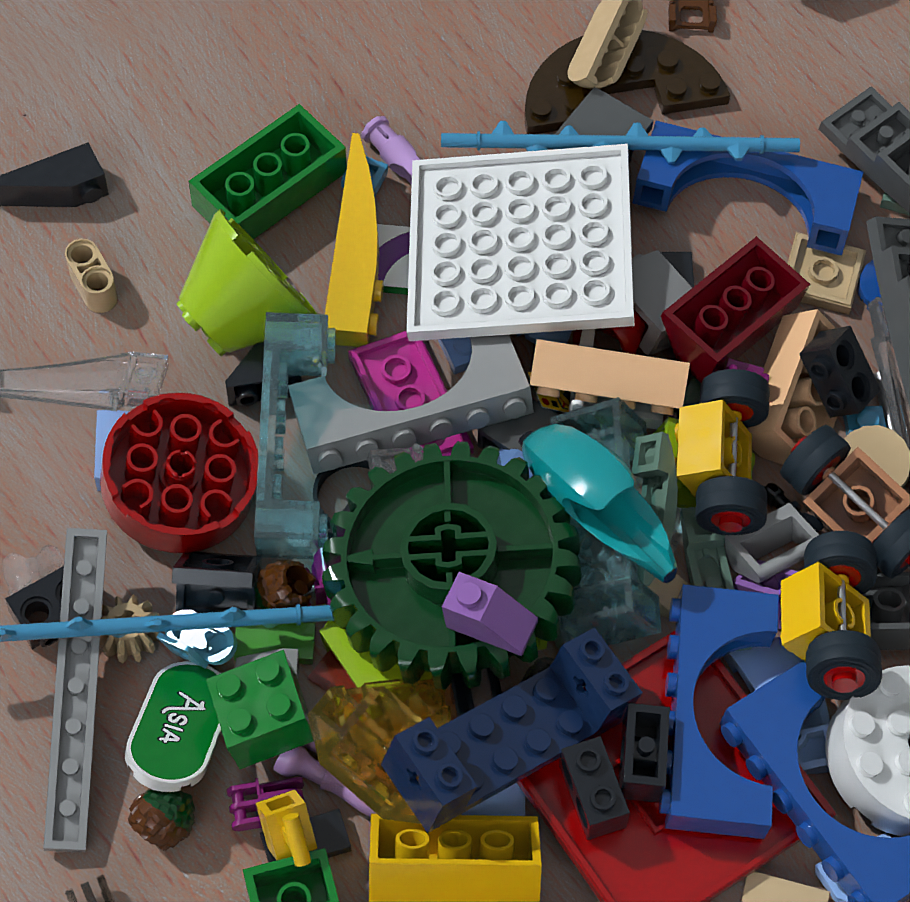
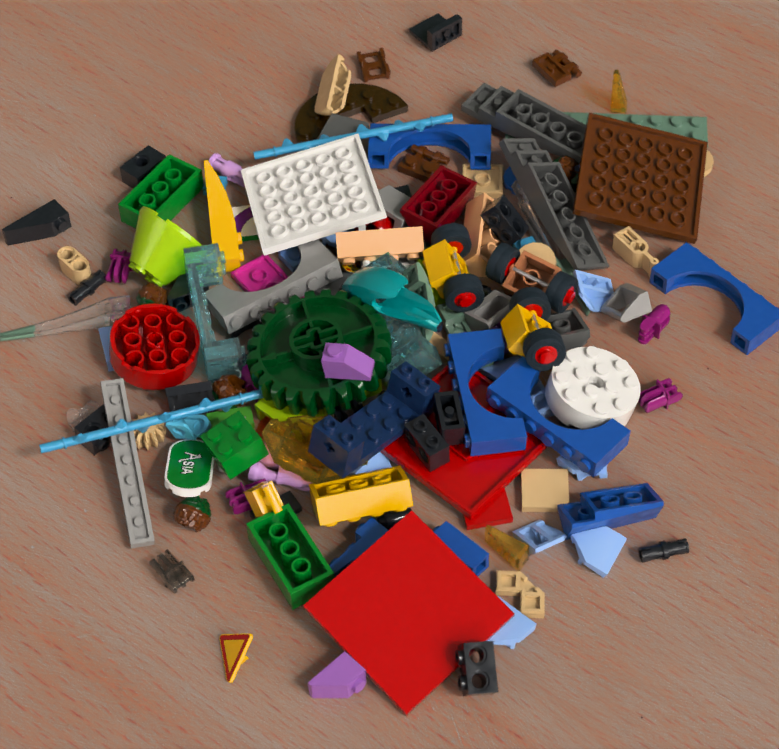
camera: 10 degrees left, 10 degrees down
(102, 321) = (87, 287): none -> black pin
(163, 295) = (119, 266): none -> magenta arm
(202, 374) = (152, 295): none -> reddish brown piece
(250, 111) = (140, 166): none -> black brick
(723, 224) = (418, 167): none -> reddish brown plate

